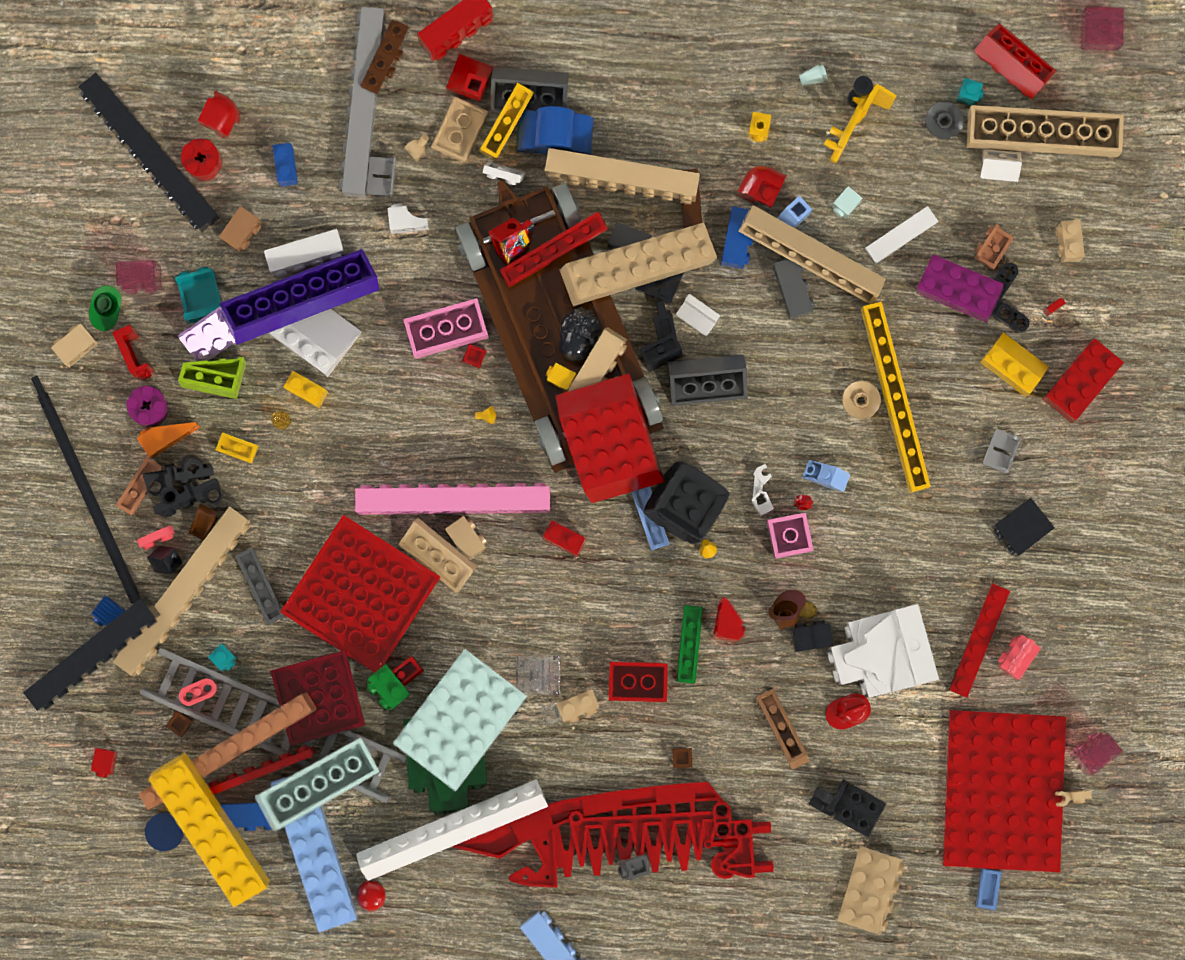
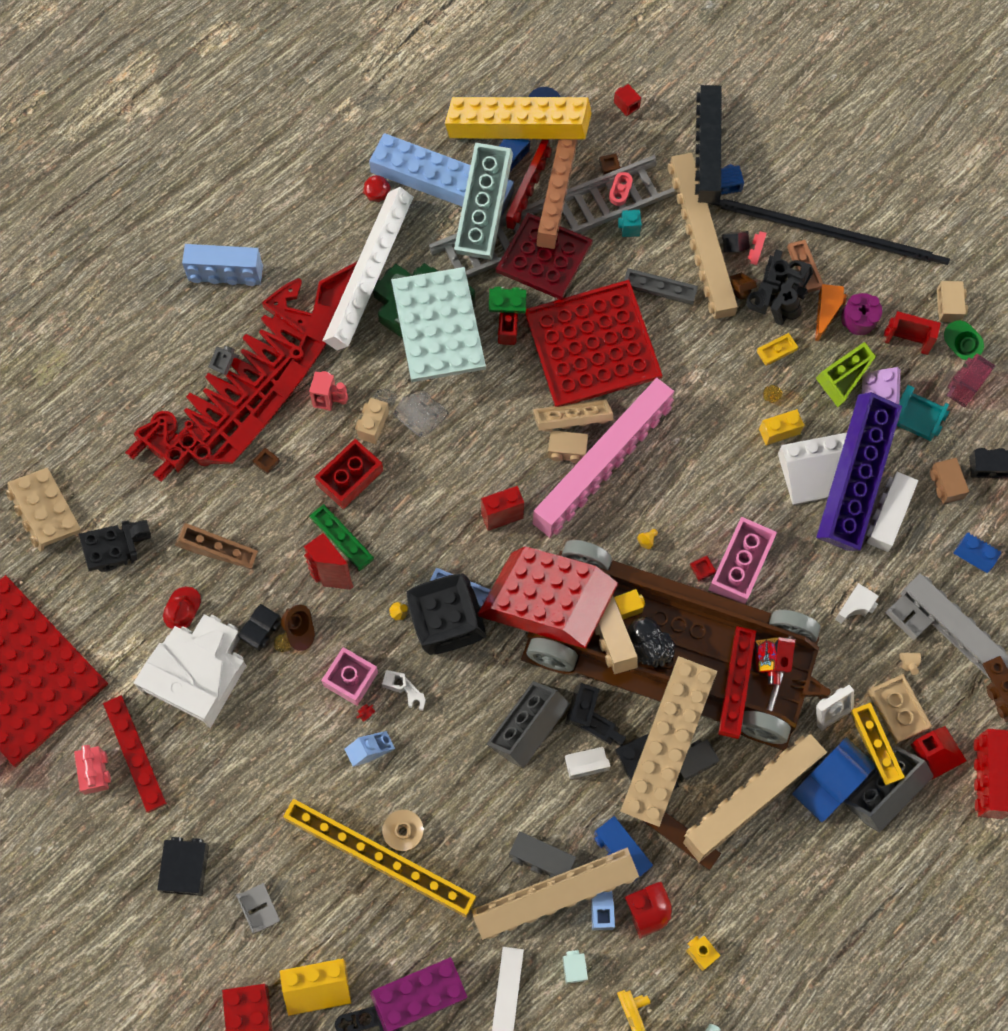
camera: 130 degrees right, 15 degrees down
(589, 763) = (325, 392): none -> coral brick

